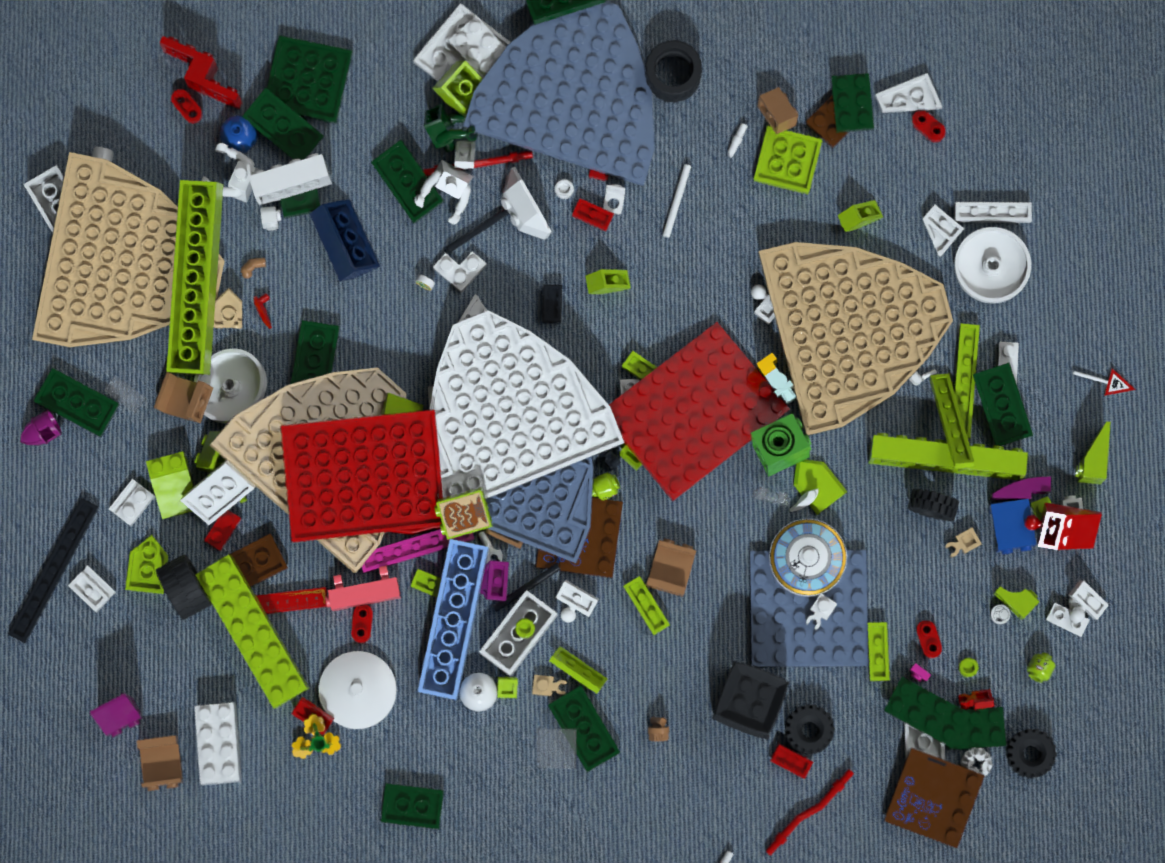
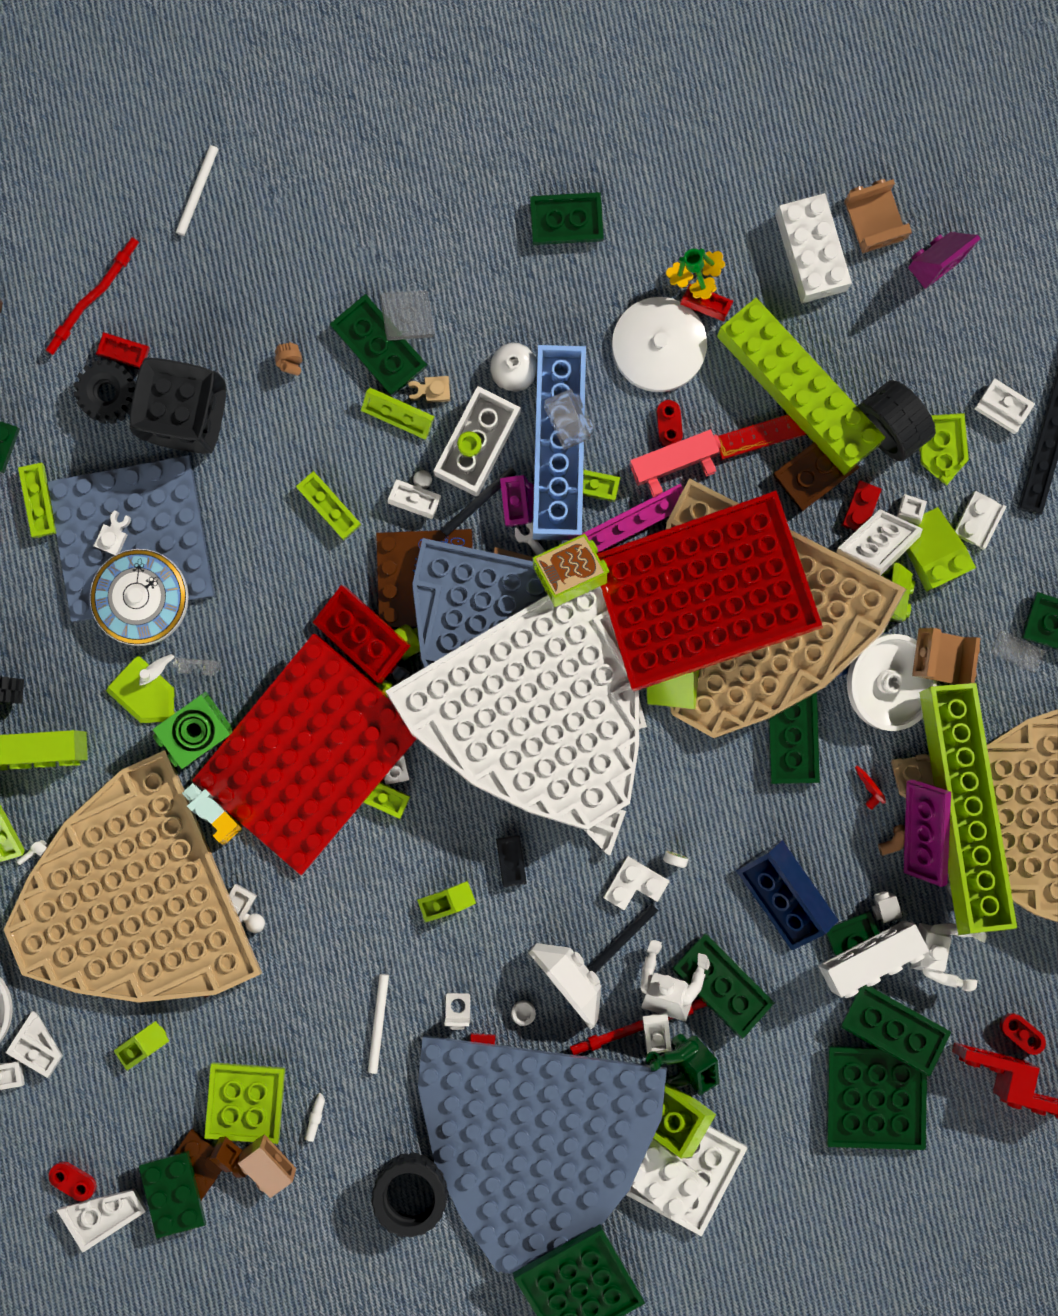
camera: 165 degrees right, 5 degrees up
(184, 520) = (911, 509): none -> white tile
(229, 265) = (927, 832): none -> magenta tile
(238, 134) = (940, 1008): blue cylinder -> none
(443, 631) = (567, 419): none -> clear brick
(507, 687) = (479, 376): lime plate -> none
(593, 215) = (480, 985): red plate -> none
(637, 496) = (361, 634): none -> red plate
(671, 567) = (306, 556): medium nougat panel -> none
(806, 122) = (226, 1157): none -> reddish brown plate

